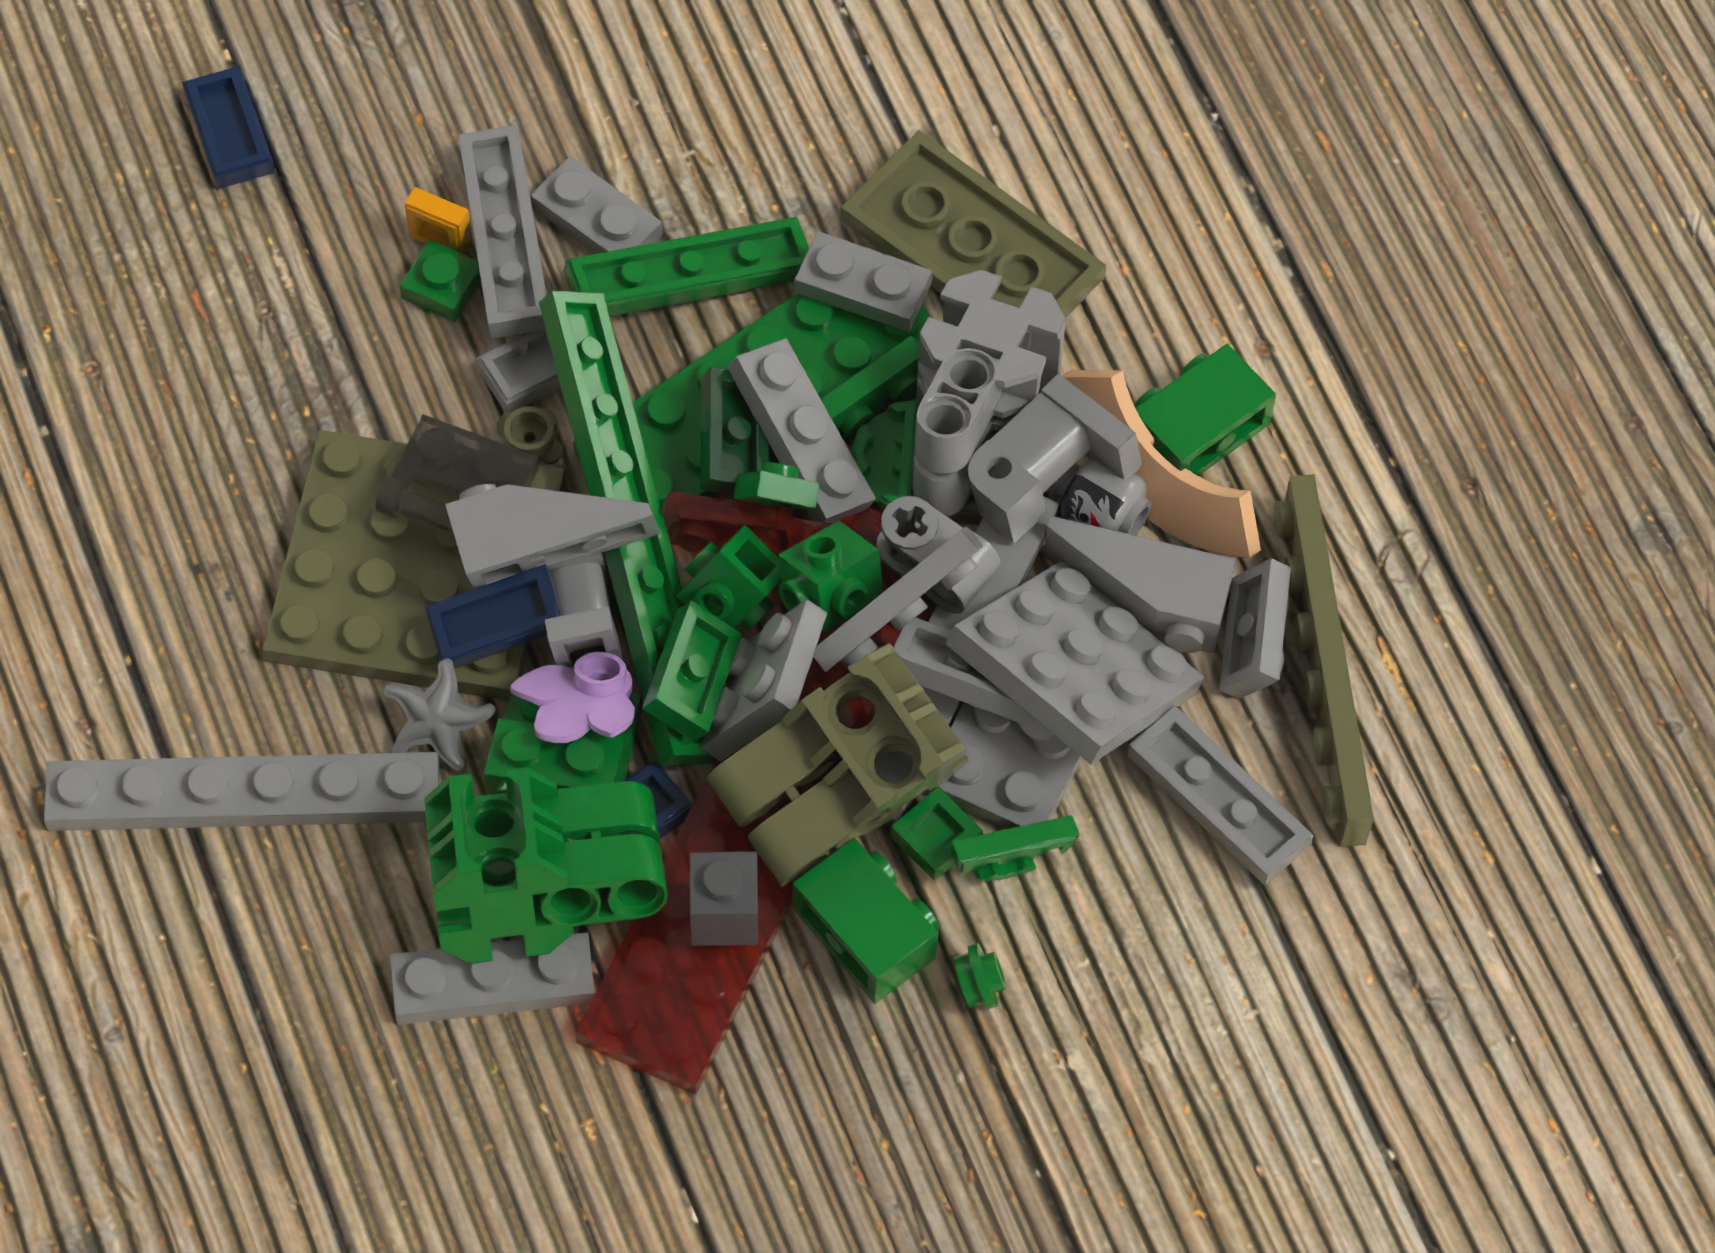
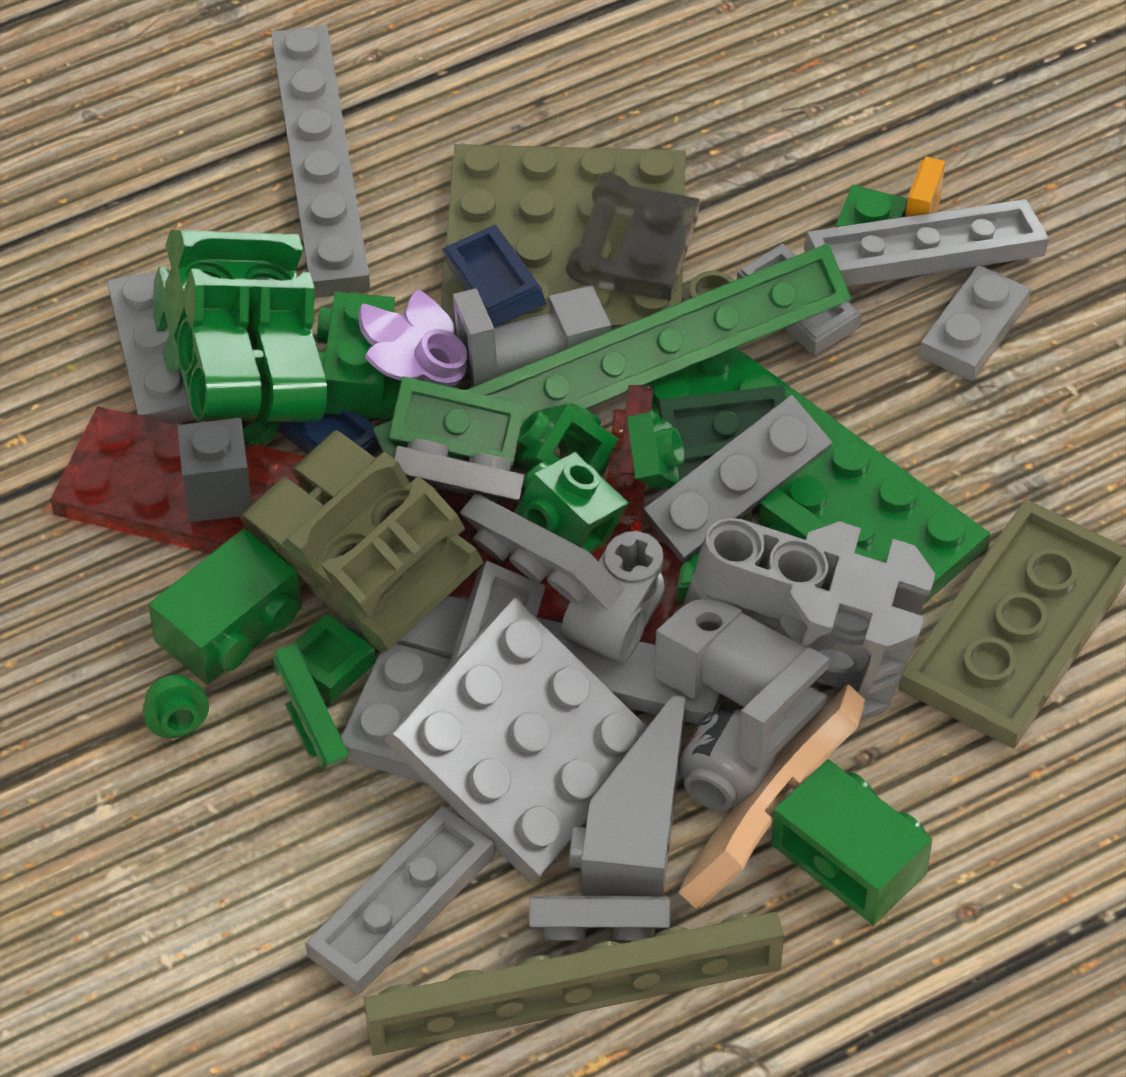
camera: 85 degrees right, 10 degrees down
(228, 127) = (996, 52): dark blue tile -> none
(437, 715) = (406, 264): light grey animal -> none
(525, 527) = (566, 257): light grey slope -> none
(691, 266) = (925, 393): green tile -> none
(863, 281) = (938, 513): light grey plate -> none

